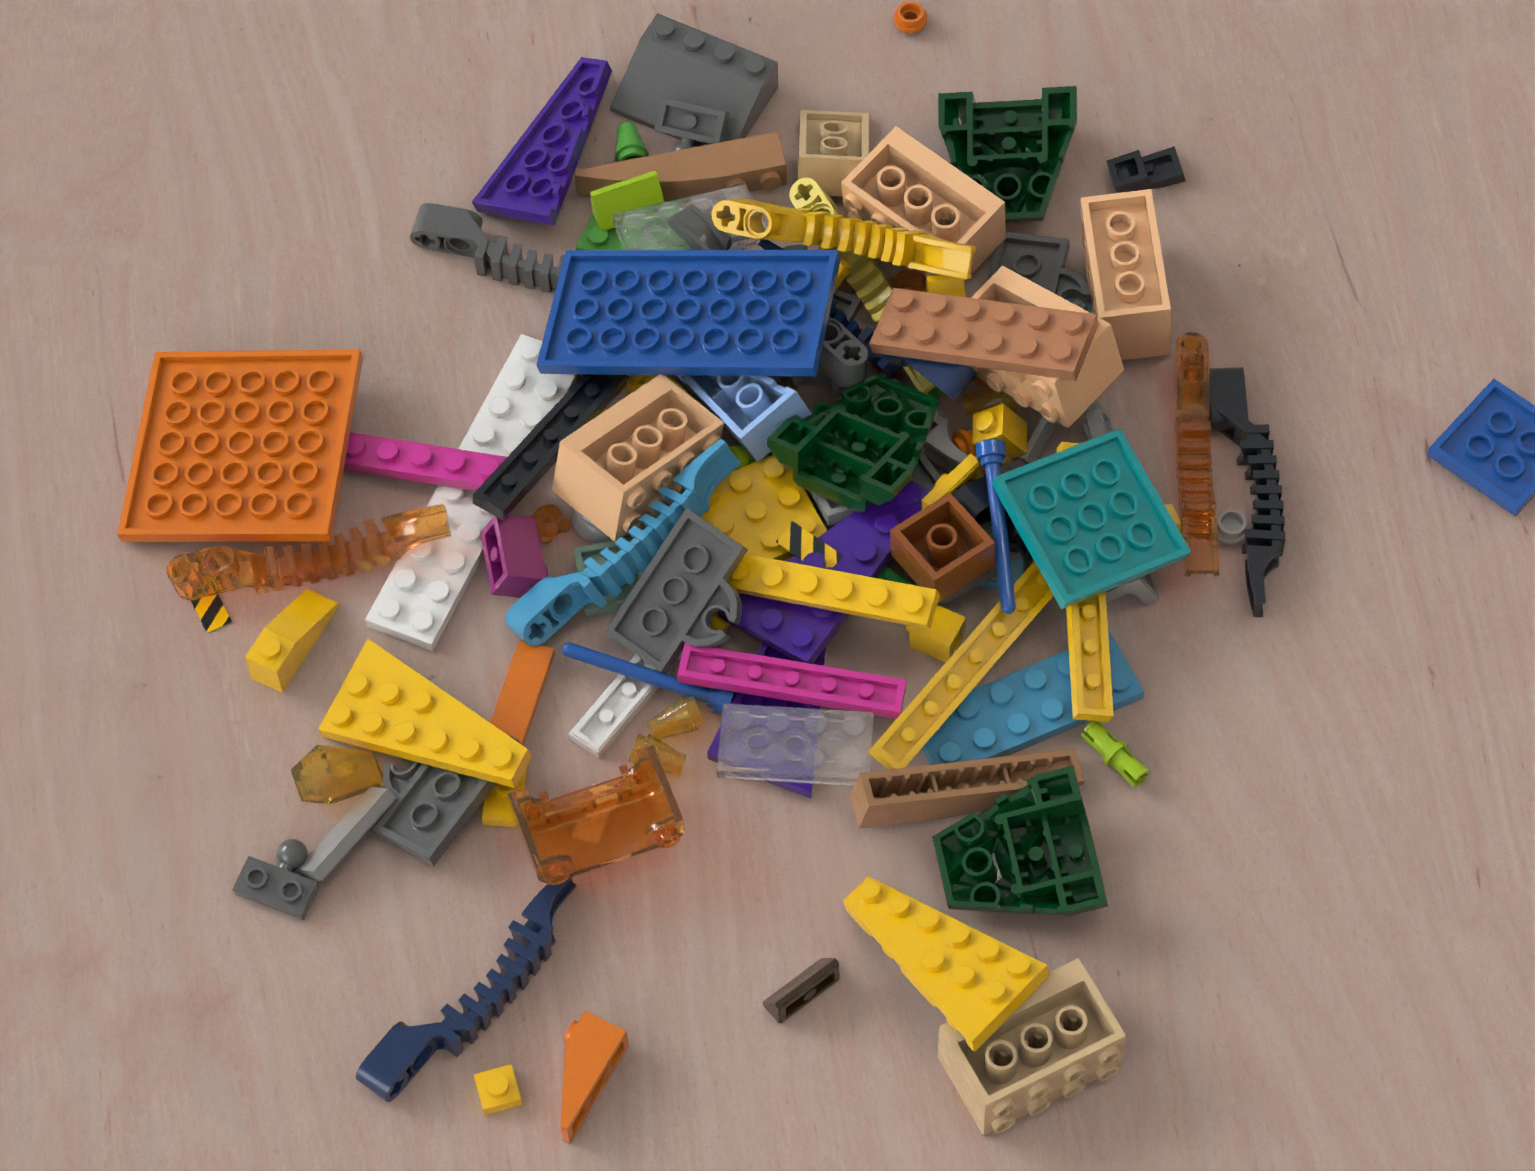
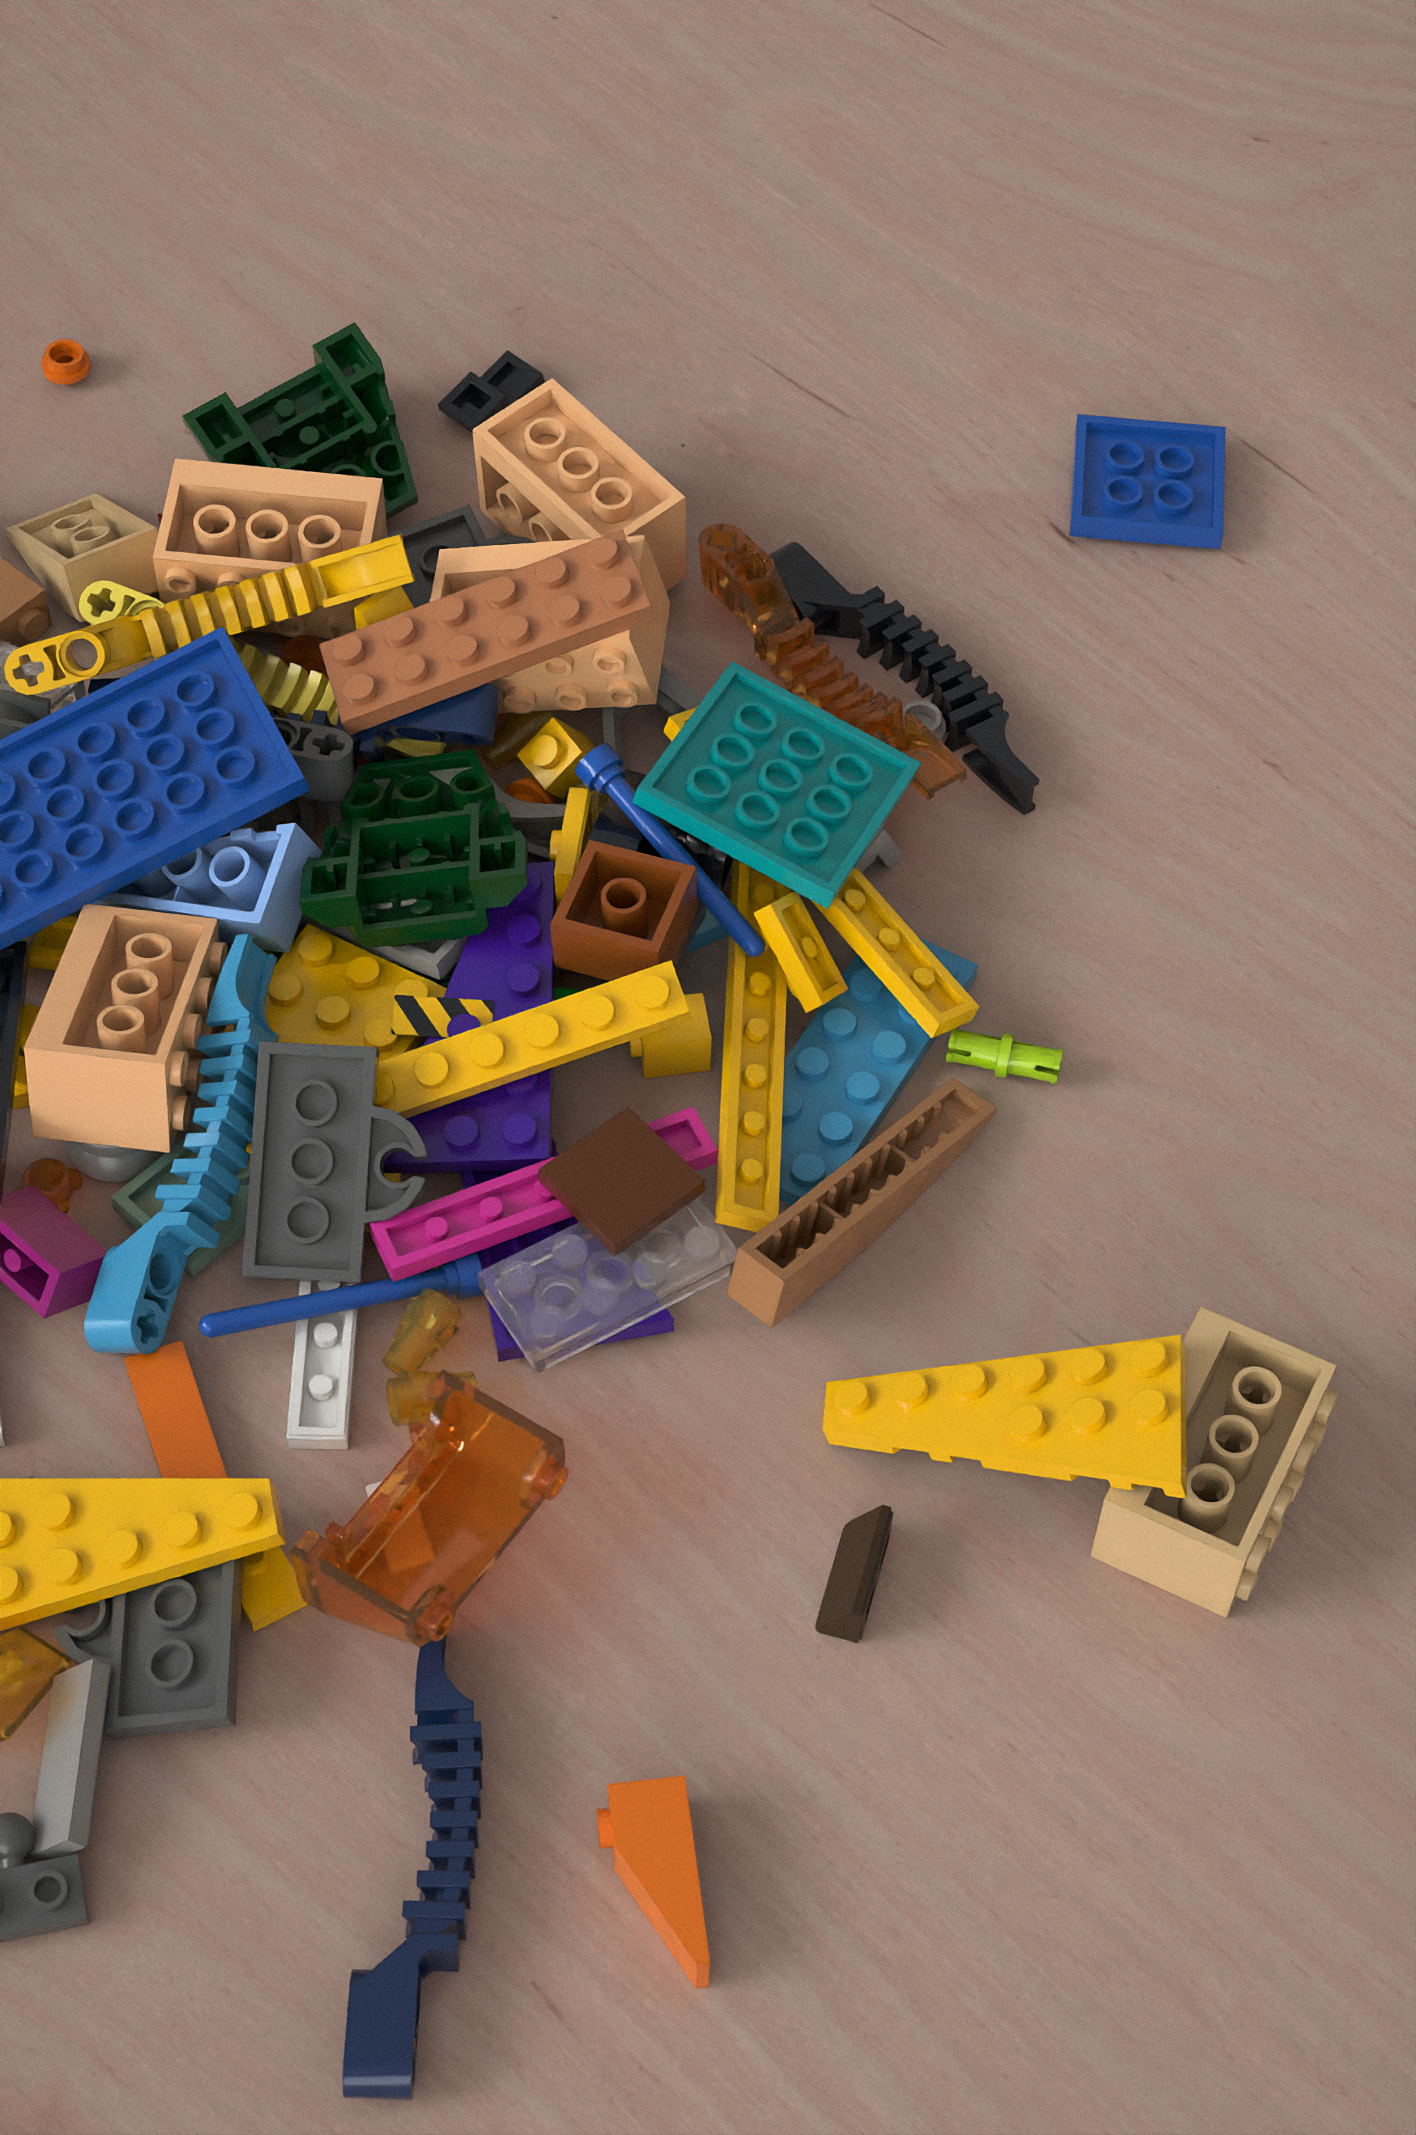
camera: 40 degrees left, 5 degrees down
(497, 1089) = (554, 1977): yellow plate -> none
(831, 698) = (621, 1181): none -> reddish brown tile
(1024, 853) = (1006, 1233): dark green wedge -> none
(1033, 625) = (800, 951): none -> yellow plate

